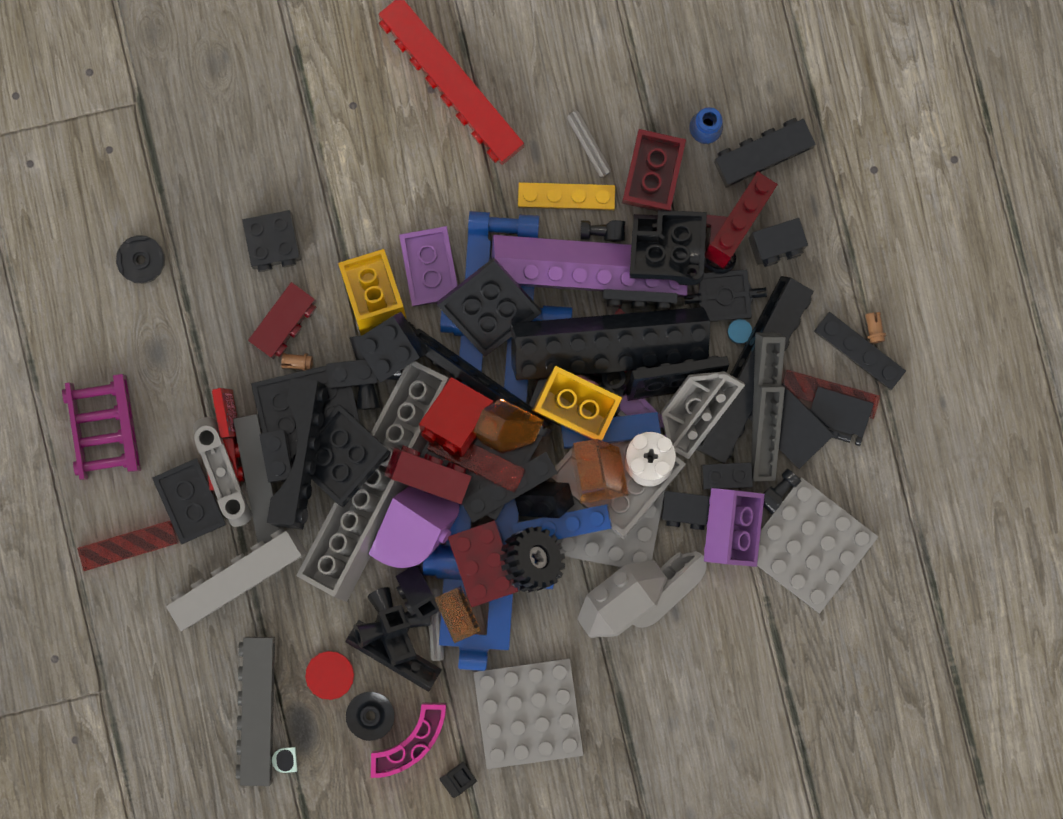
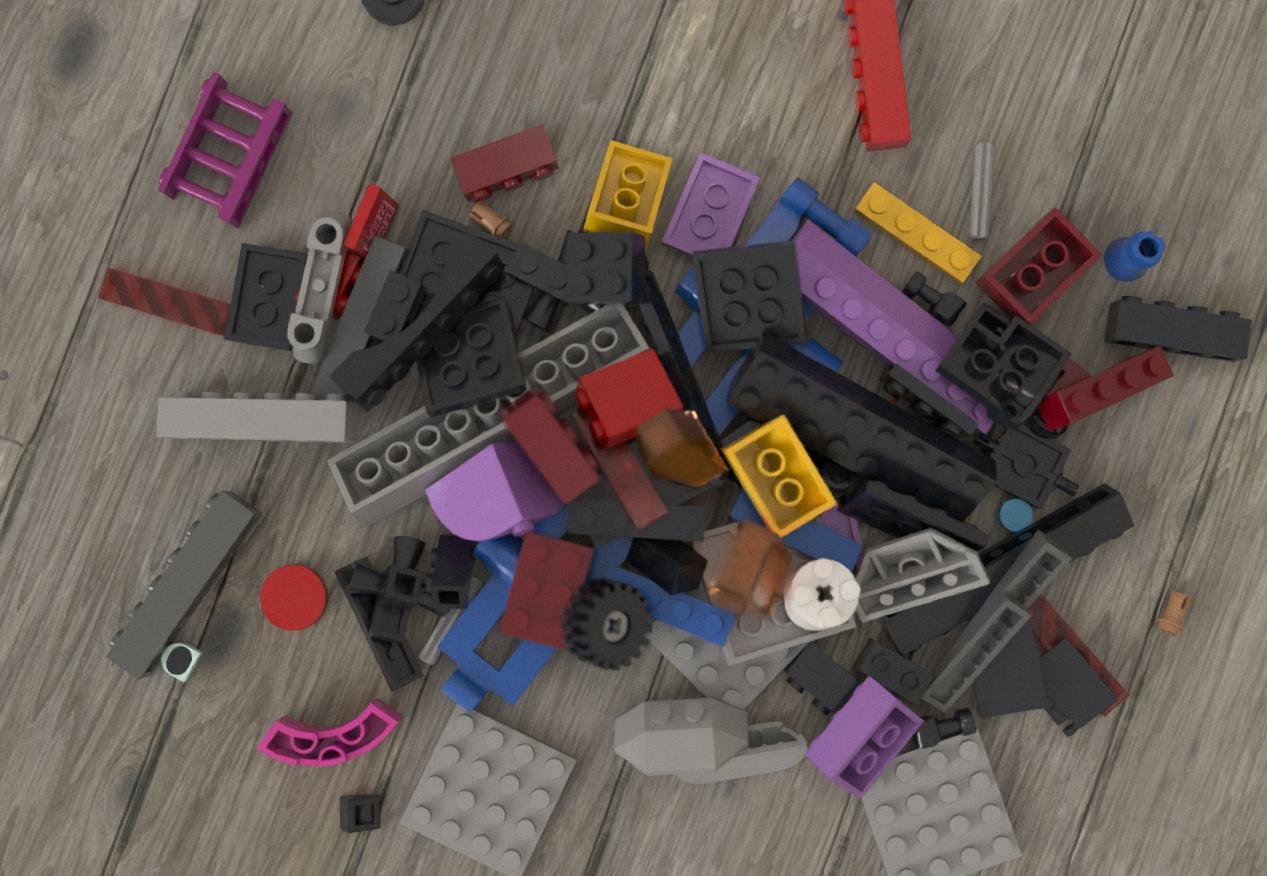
camera: 40 degrees right, 0 degrees up
(271, 240) = (552, 65): black brick -> none
(363, 727) = (291, 678): black dish -> none
(457, 614) = (479, 627): clear orange brick -> none
(777, 242) = (1130, 442): black brick -> none
(860, 351) = (1138, 628): black plate -> none

